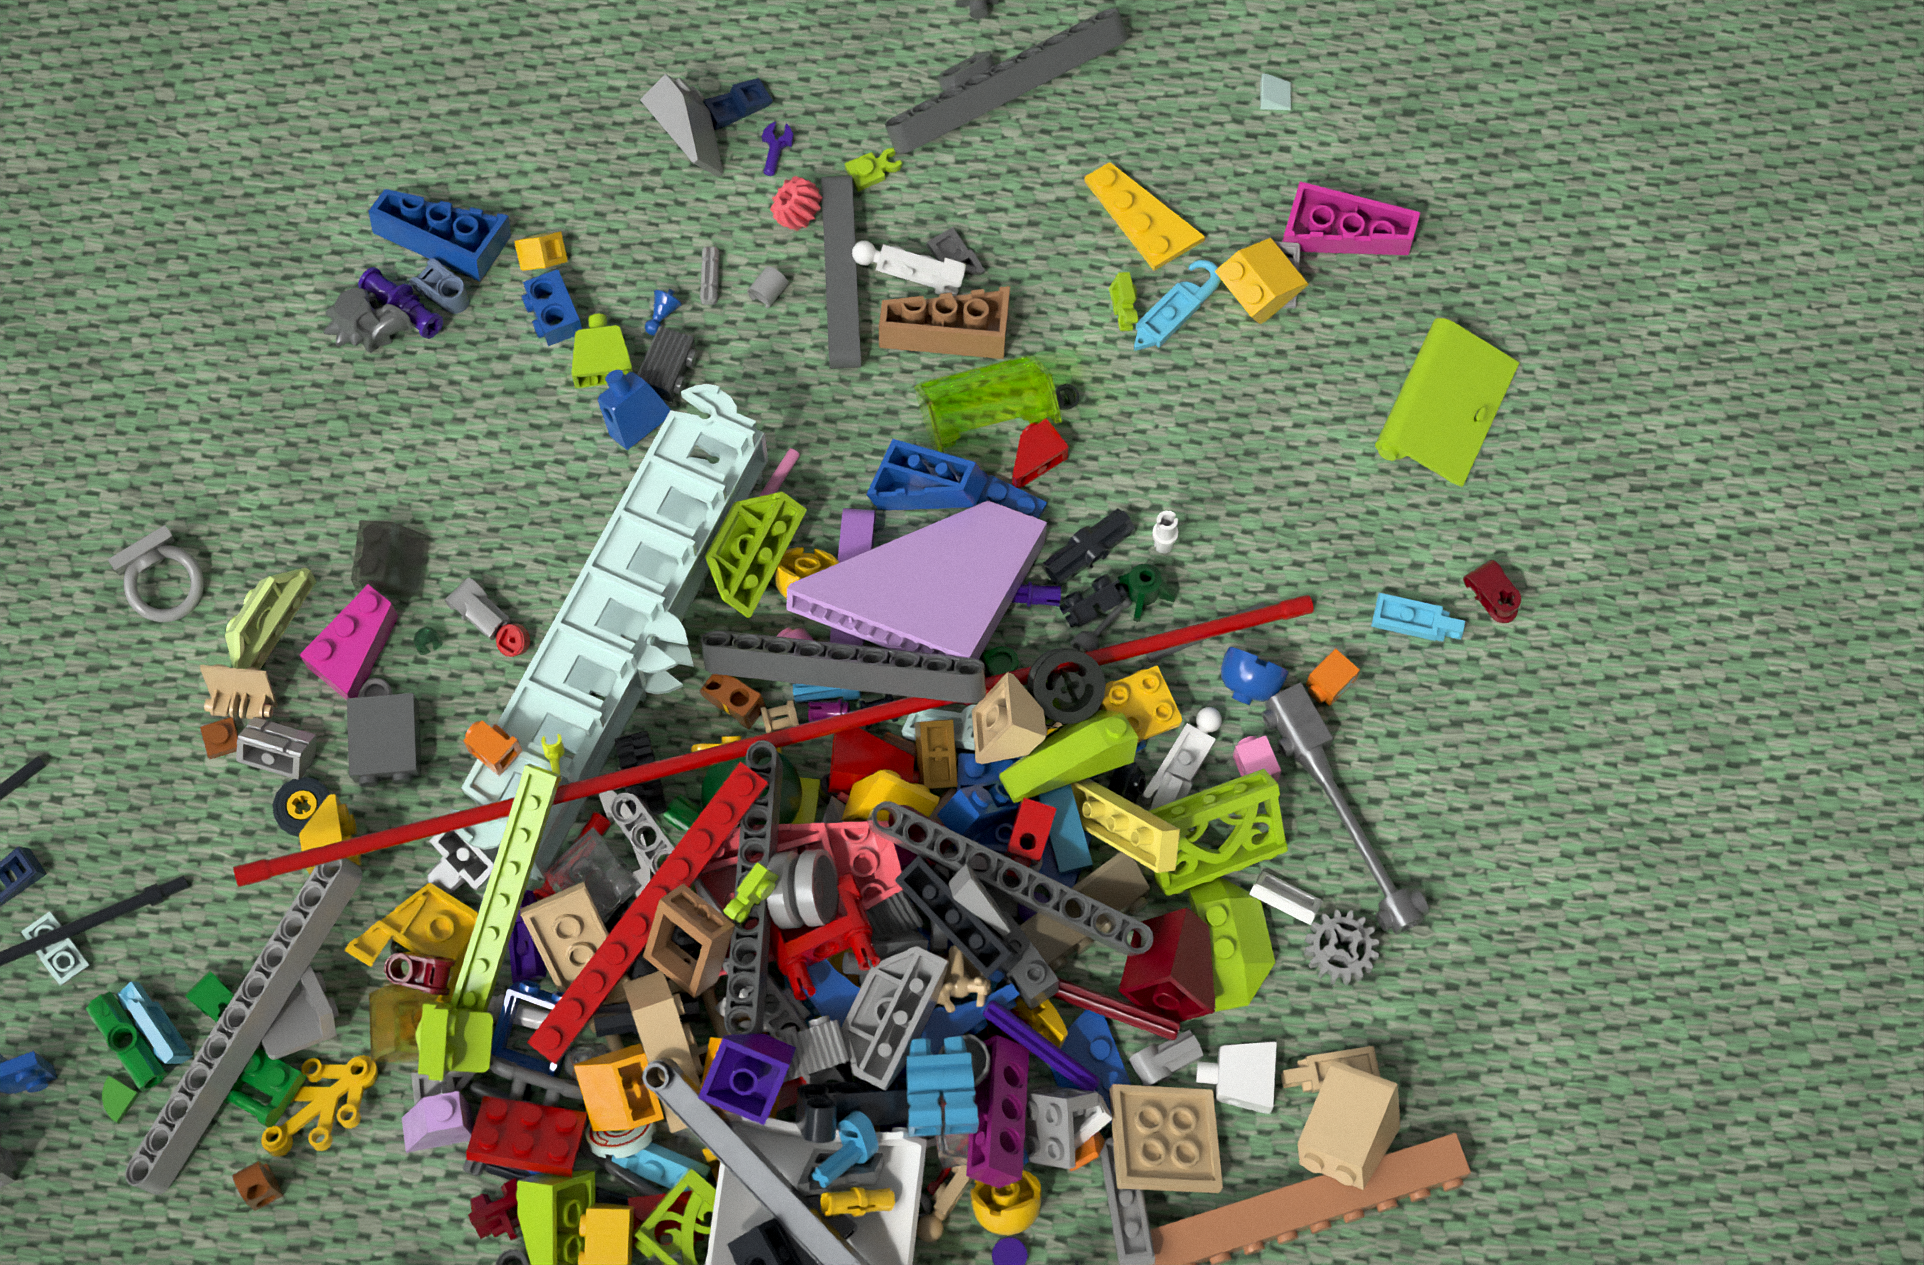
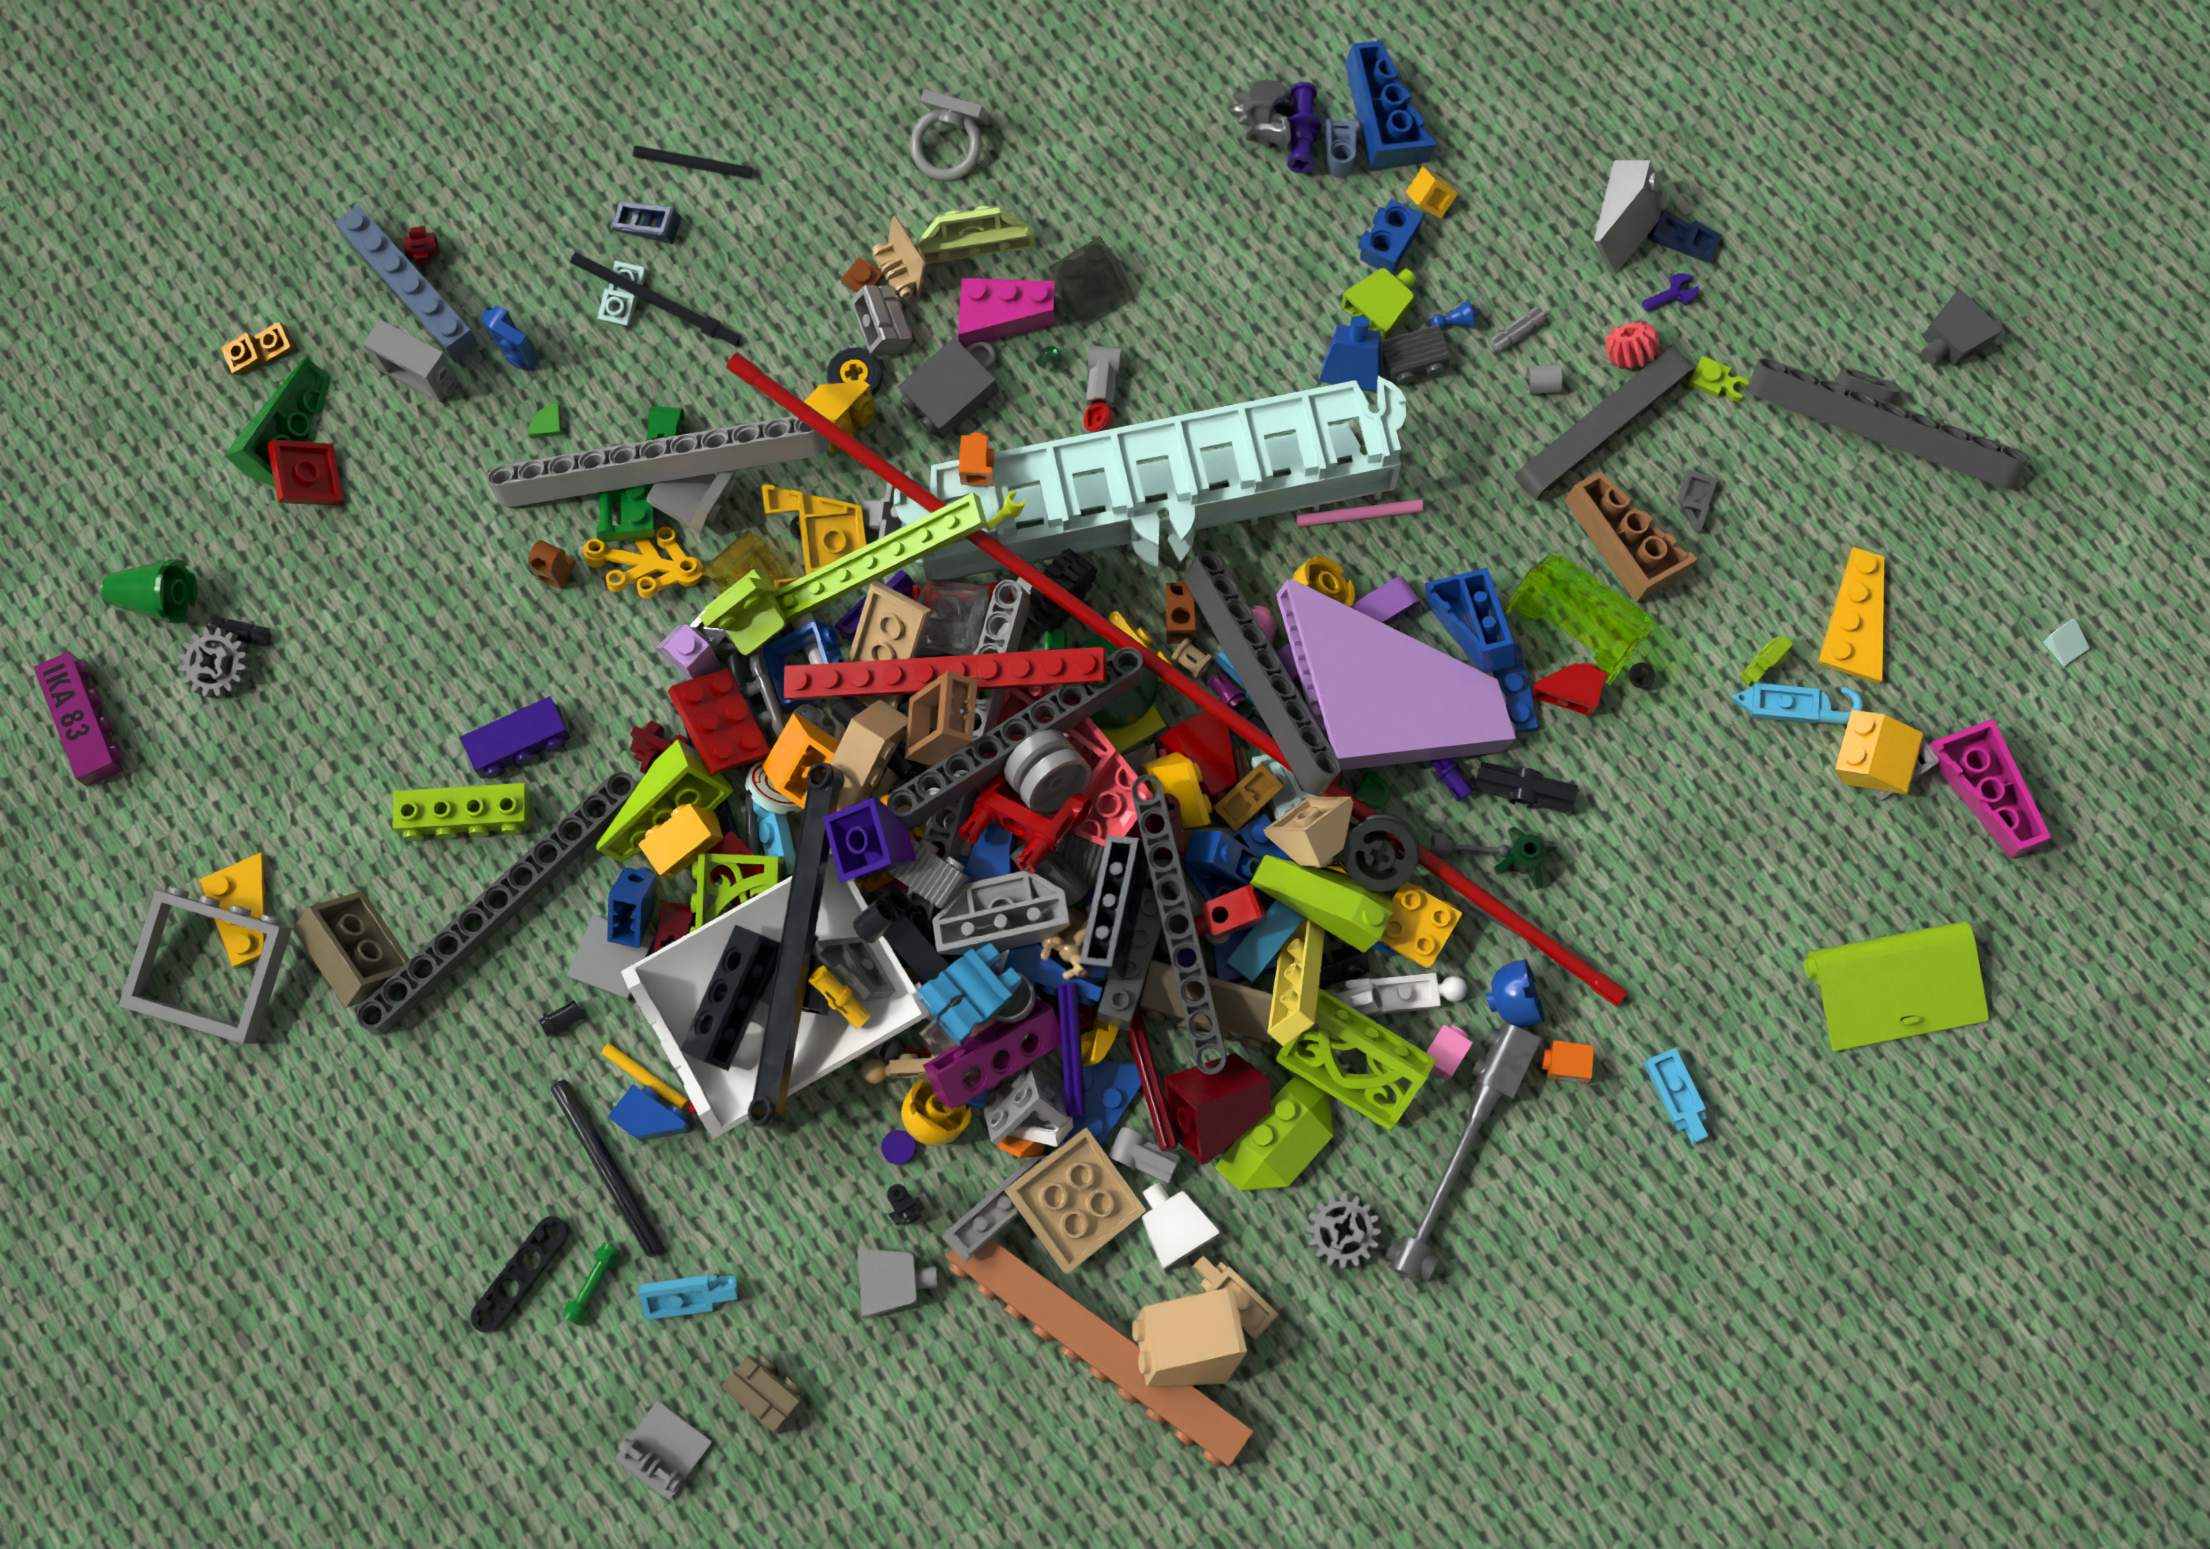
camera: 55 degrees right, 5 degrees up
(138, 1056) = (583, 410): green piece -> none
(155, 1024) = (616, 404): medium azure hinge -> none
(425, 973) = (785, 551): dark red piece -> none
(752, 547) = (1303, 530): lime wedge -> none
(754, 888) = (1010, 733): lime plate -> none
(858, 1146) = (883, 965): dark azure piece -> none
(922, 269) = (1659, 483): white plate -> none
(972, 894) = (1137, 911): light grey slope -> none
(1081, 604) = (1494, 825): black hinge -> none
(1165, 532) = (1584, 836): white pin -> none
(1286, 897) = (1350, 1157): white tile -> none
(1492, 587) = (1756, 1138): dark red piece -> none

